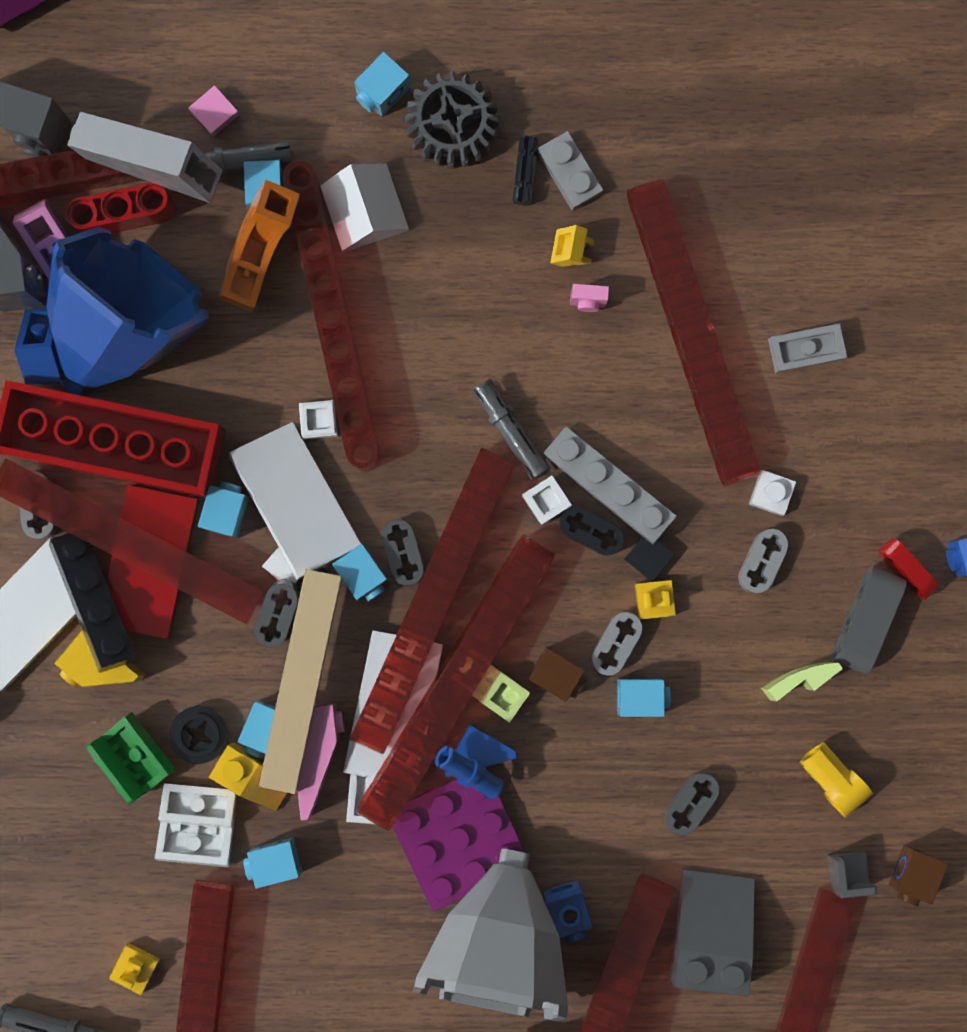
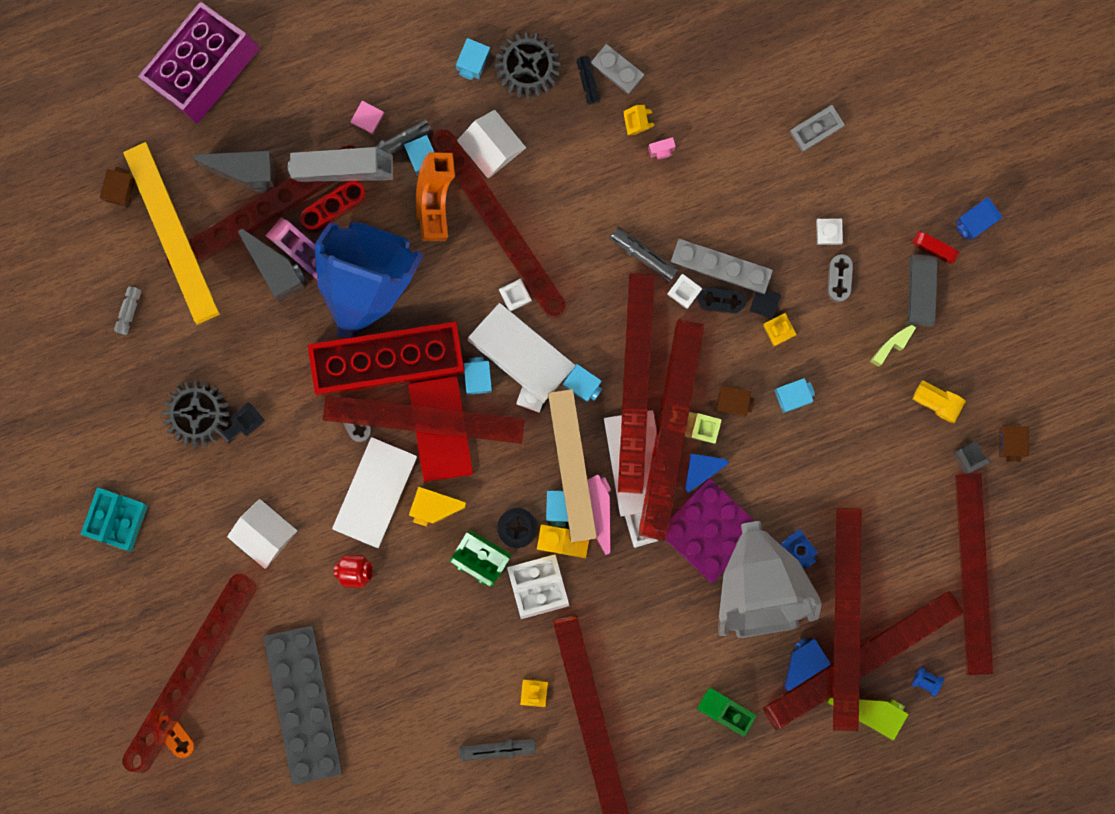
camera: 20 degrees left, 0 degrees up
(37, 349) = (316, 314): blue slope -> none
(92, 602) = (417, 466): black plate -> none
(269, 611) = (532, 430): dark grey beam -> none
(273, 863) = (597, 590): medium azure brick -> none
(394, 555) = (609, 357): dark grey beam -> none
(469, 772) = (702, 482): blue pin -> none
(624, 647) = (759, 366): light grey beam -> none
(692, 333) = (738, 146): clear red beam -> none
(698, 808) = (846, 450): dark grey beam -> none
(714, 933) = (897, 527): dark grey slope -> none

